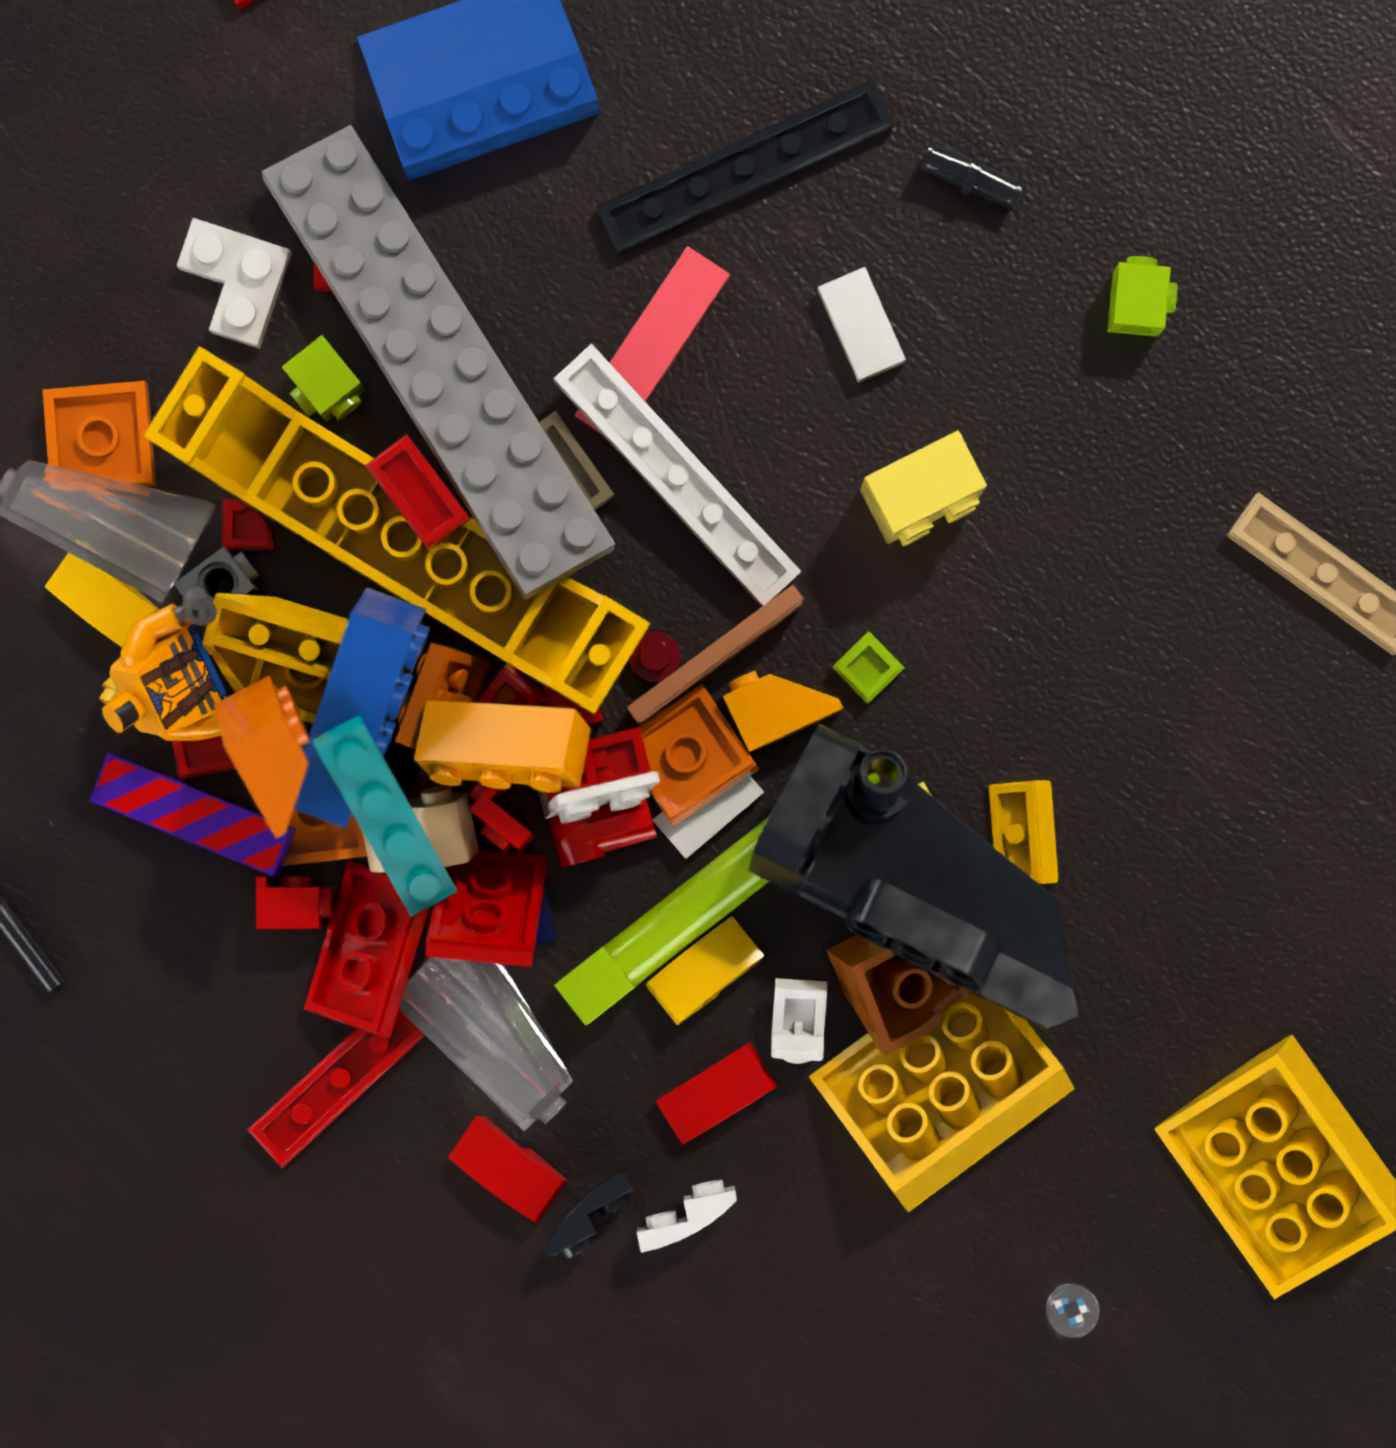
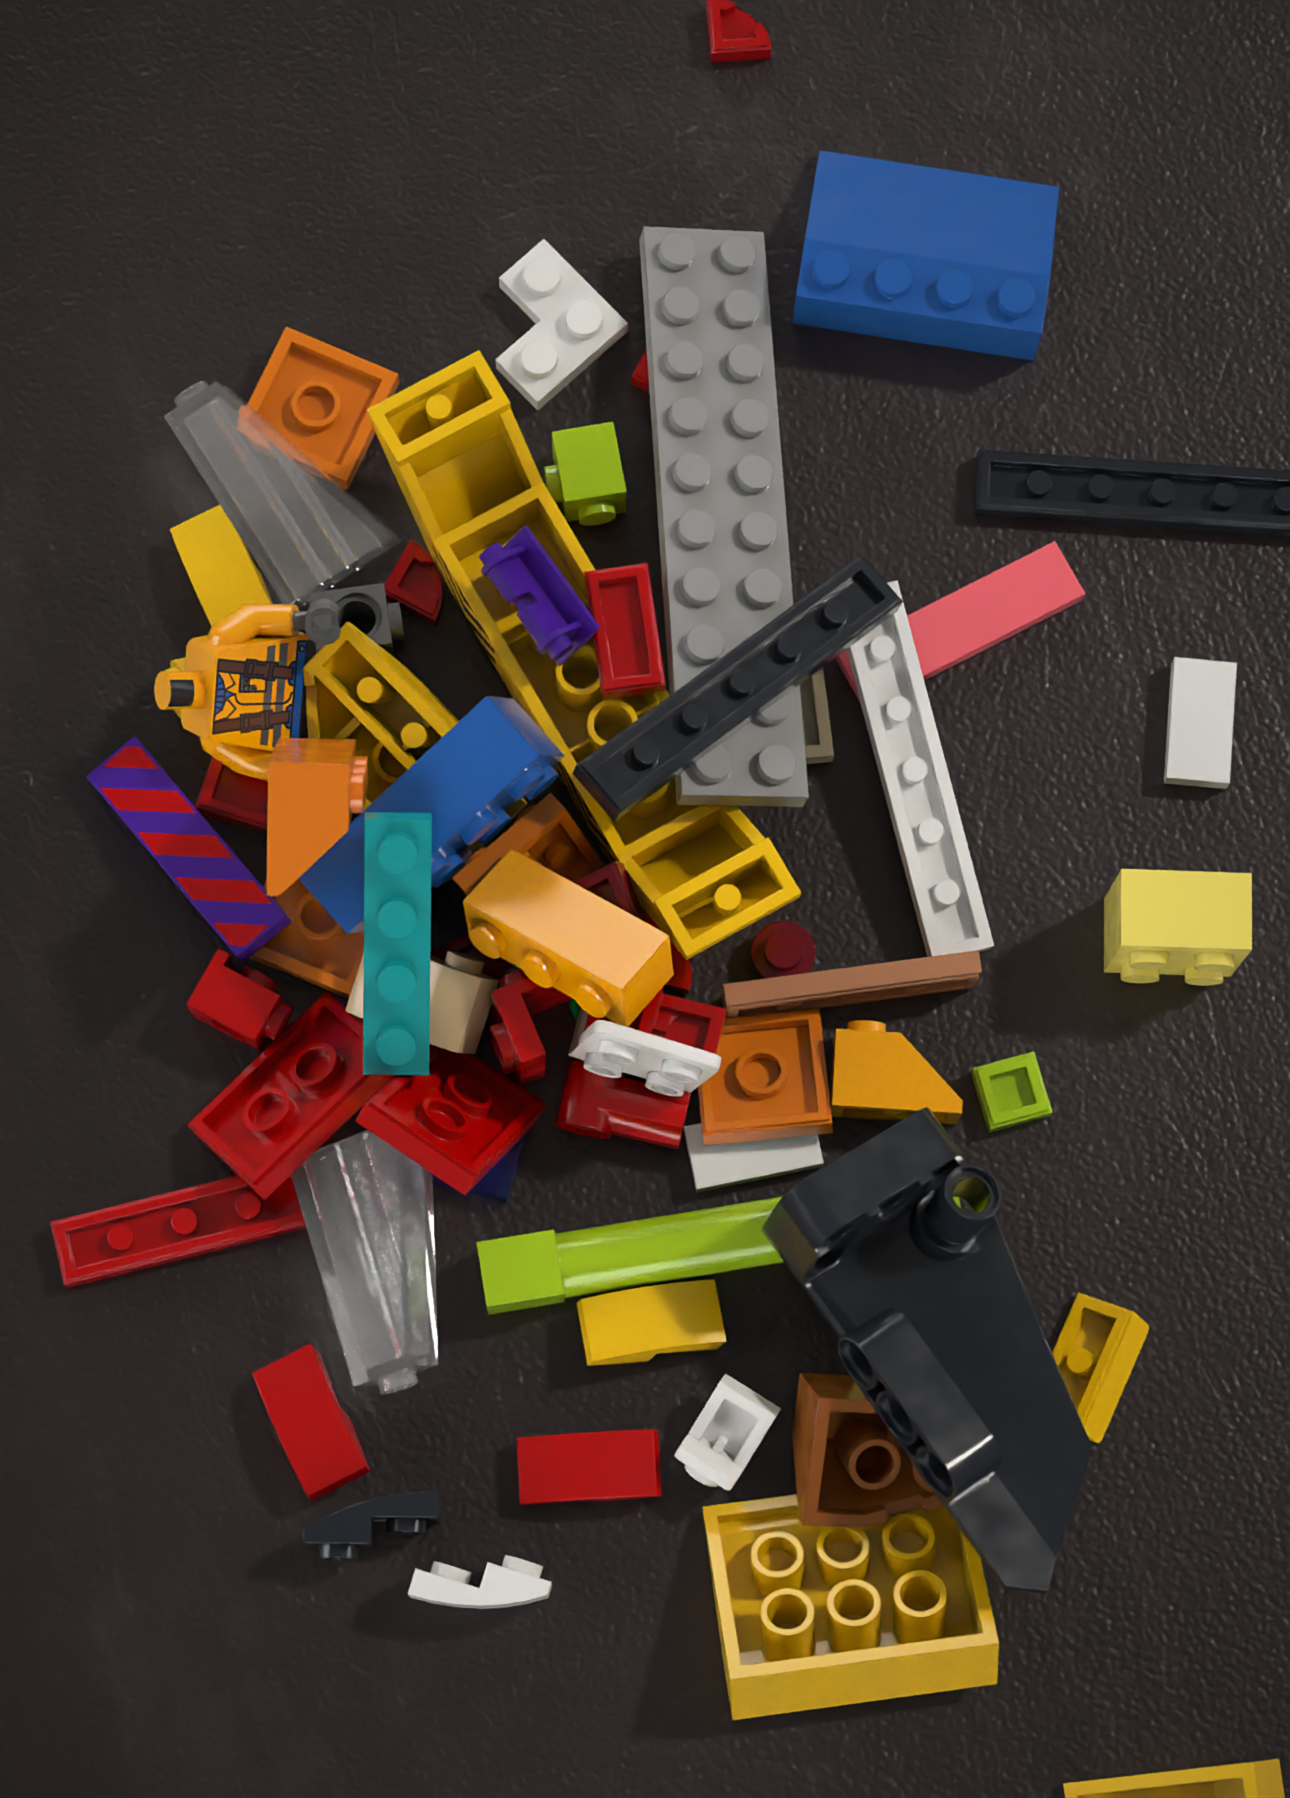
camera: 25 degrees right, 10 degrees down
(355, 506) = (541, 594): none -> dark purple hinge
(522, 493) = (736, 688): none -> black tile

